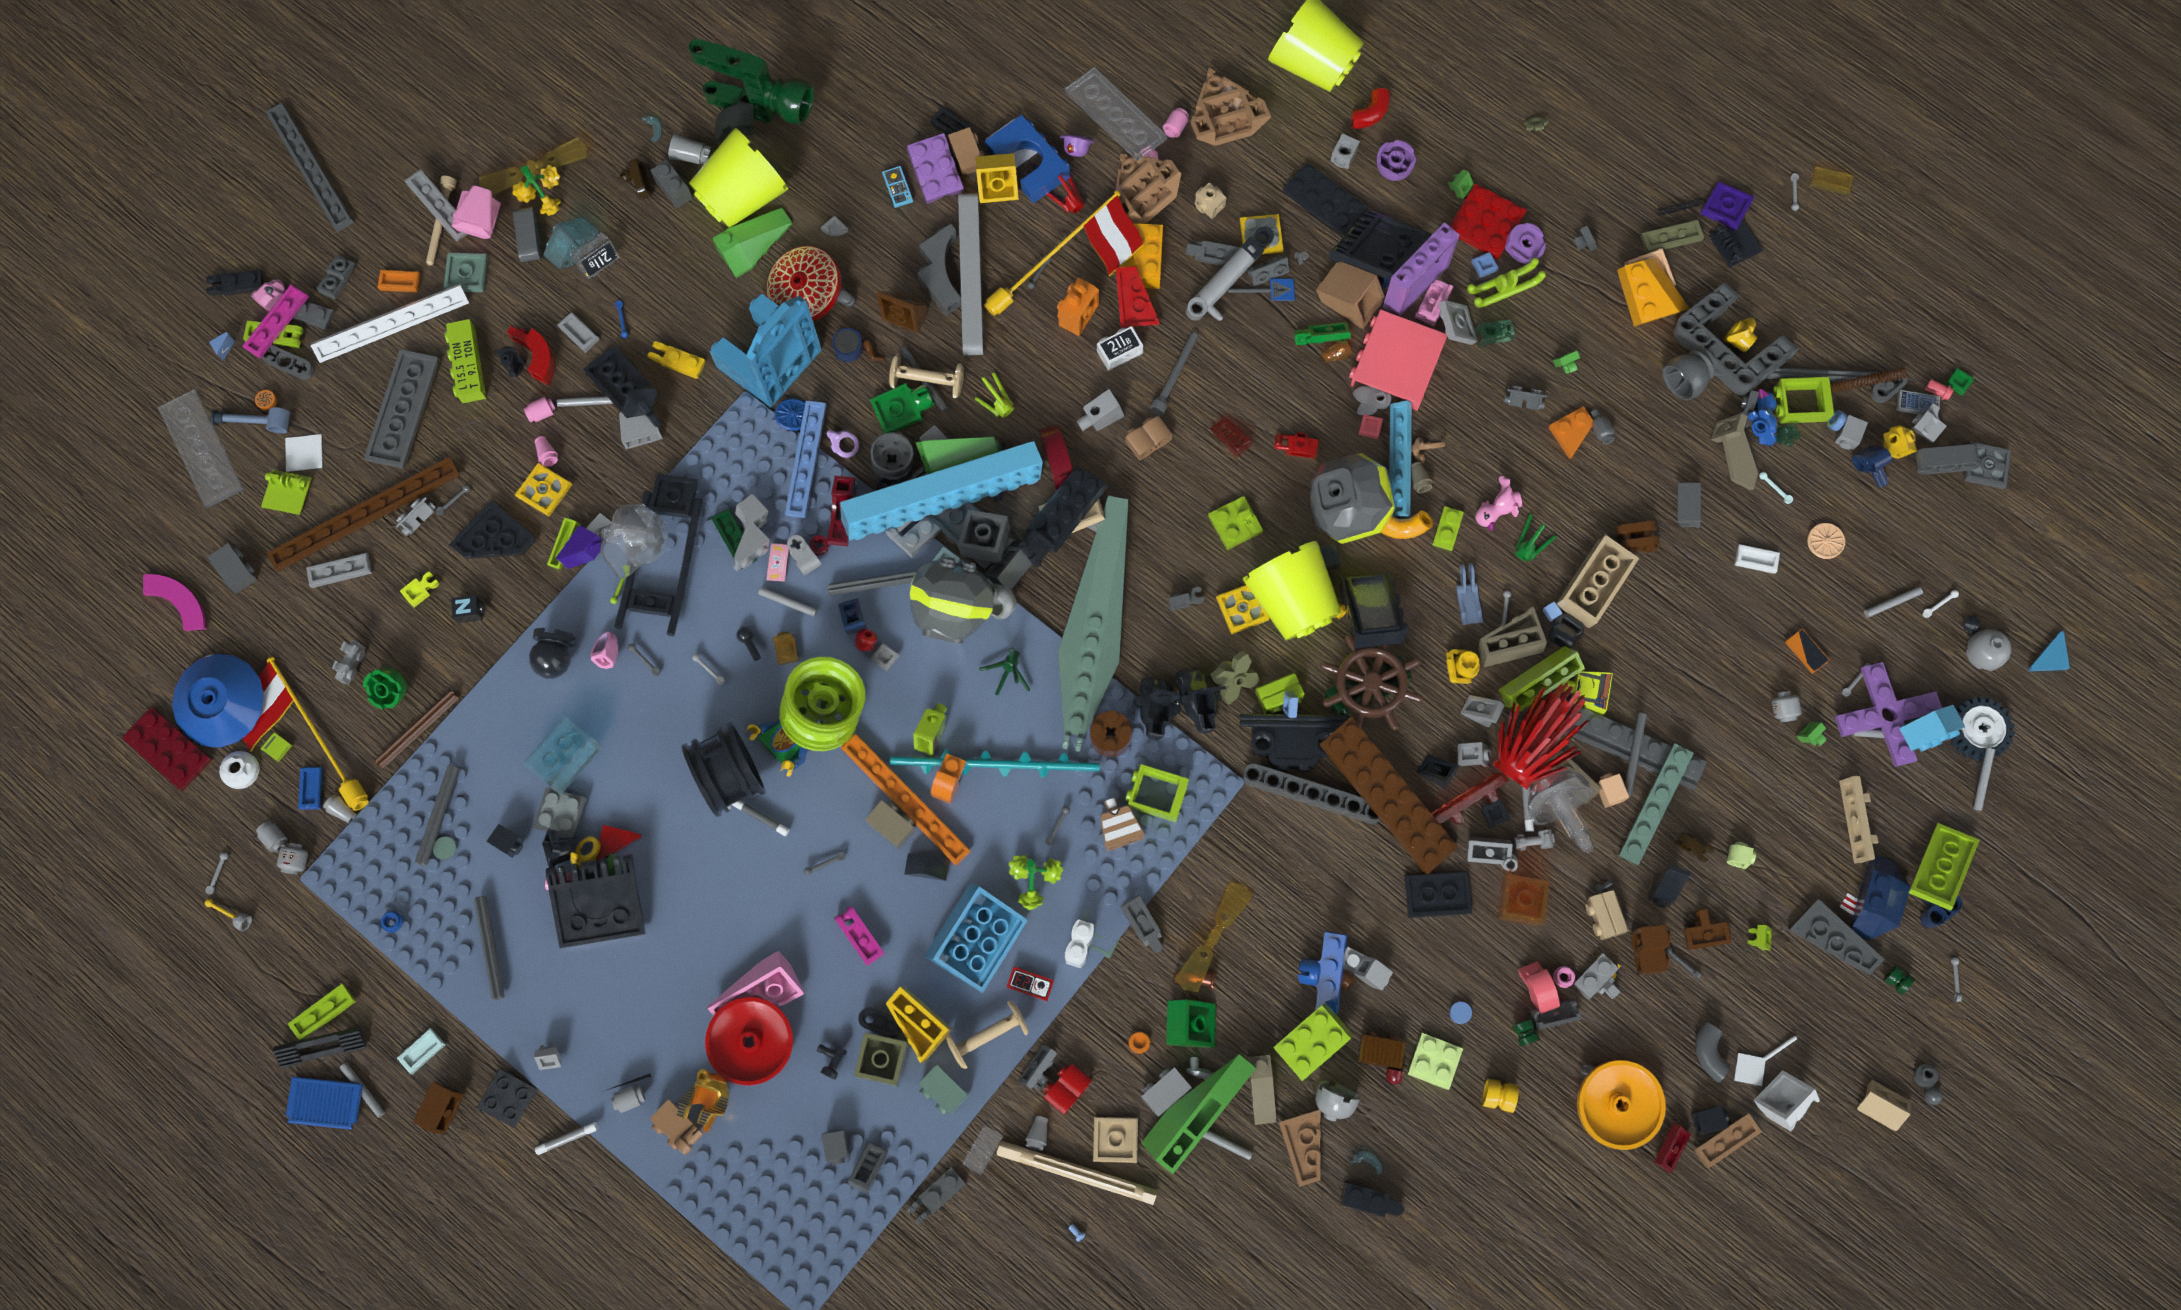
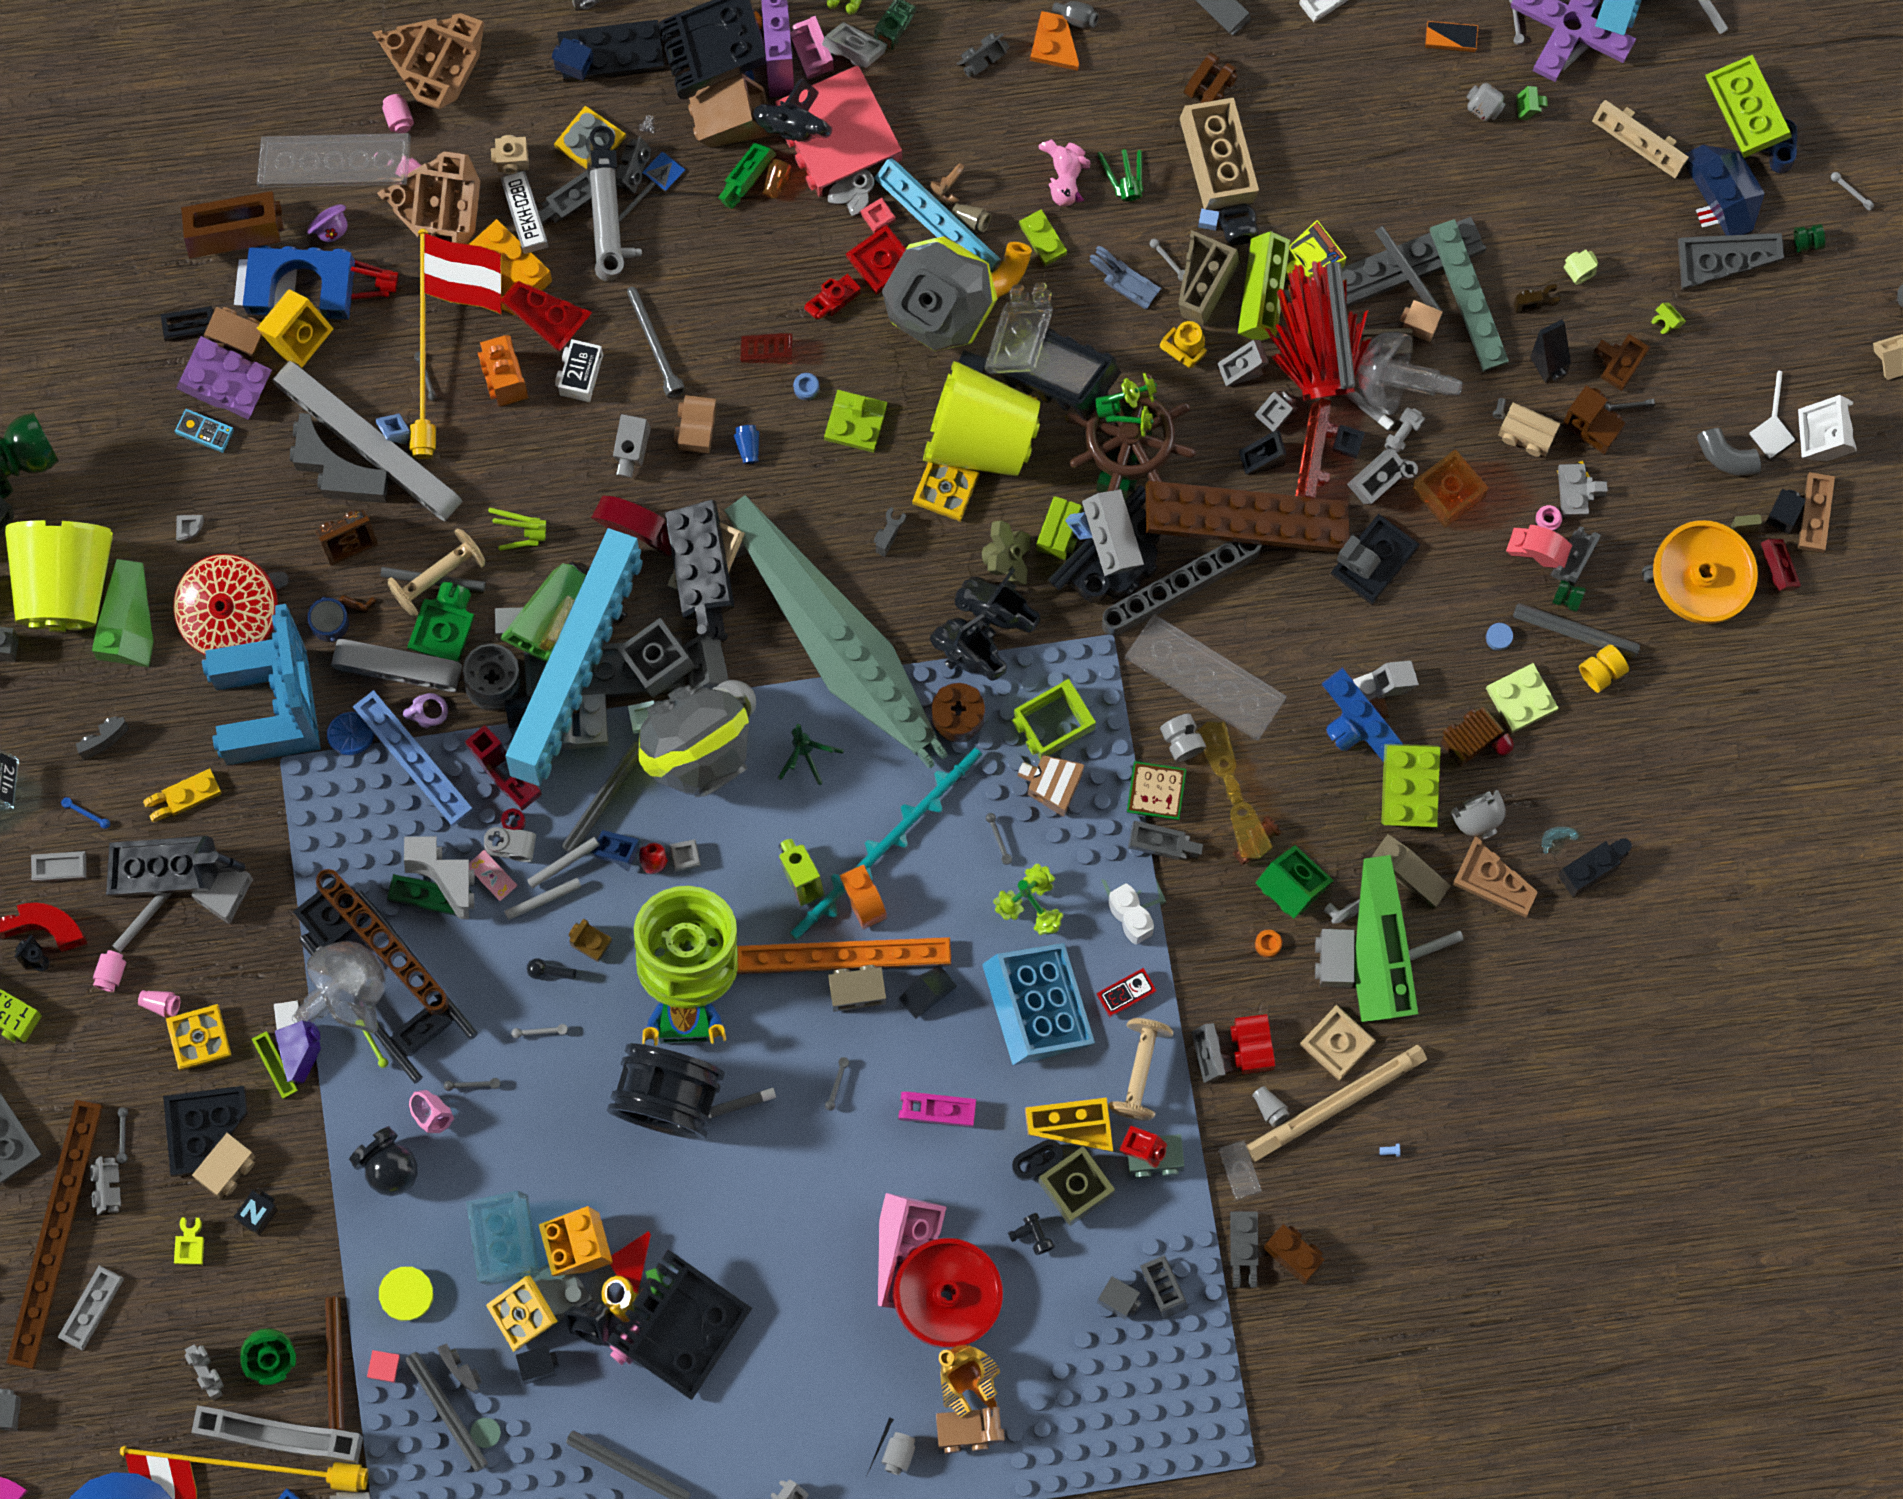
camera: 50 degrees left, 0 degrees up
(338, 720) = (277, 1436): none -> light grey arch
(435, 757) = (383, 1366): none -> coral tile
(465, 808) = (464, 1374): none -> flat silver slope
(479, 568) = (224, 1166): none -> tan brick
(488, 731) = (406, 1293): none -> neon yellow tile
(528, 805) = (521, 1313): none -> yellow piece
(596, 799) = (575, 1242): none -> light orange slope
(675, 290) = (111, 732): none -> dark grey slope
(677, 545) = (373, 932): none -> reddish brown beam
(818, 593) = (563, 862): none -> light grey bar
(853, 402) = (396, 665): none -> light grey beam
(938, 1079) = (1144, 1146): none -> red bracket
(949, 463) = (556, 623): none -> clear yellow tile
(957, 1229) = (1294, 1253): none -> reddish brown brick
(989, 280) = (394, 428): none -> medium blue slope
(1026, 94) = (232, 224): none -> reddish brown piece
(1164, 475) = (748, 443): none -> blue cone
(1171, 891) = (1156, 790): none -> piece
(1182, 236) = (524, 212): none -> tile
(1218, 878) = (1182, 736): none -> light grey wheel
(1230, 477) = (806, 386): none -> medium blue tile
(1269, 859) = (1205, 677): none -> clear tile
(1297, 181) = (572, 58): none -> dark blue brick
(1300, 724) = (1112, 532): none -> light grey brick
(1344, 444) = (877, 258): none -> red tile
(1376, 564) = (1020, 331): none -> clear tile
(1377, 323) = (793, 117): none -> black piece
(1390, 657) = (1110, 405): none -> plant
(1427, 883) = (1358, 558): none -> dark grey leg
(1509, 1057) = (1575, 630): none -> dark grey axle
(1553, 741) = (1340, 325): none -> dark grey axle
(1677, 1103) = (1746, 524): none -> olive tile

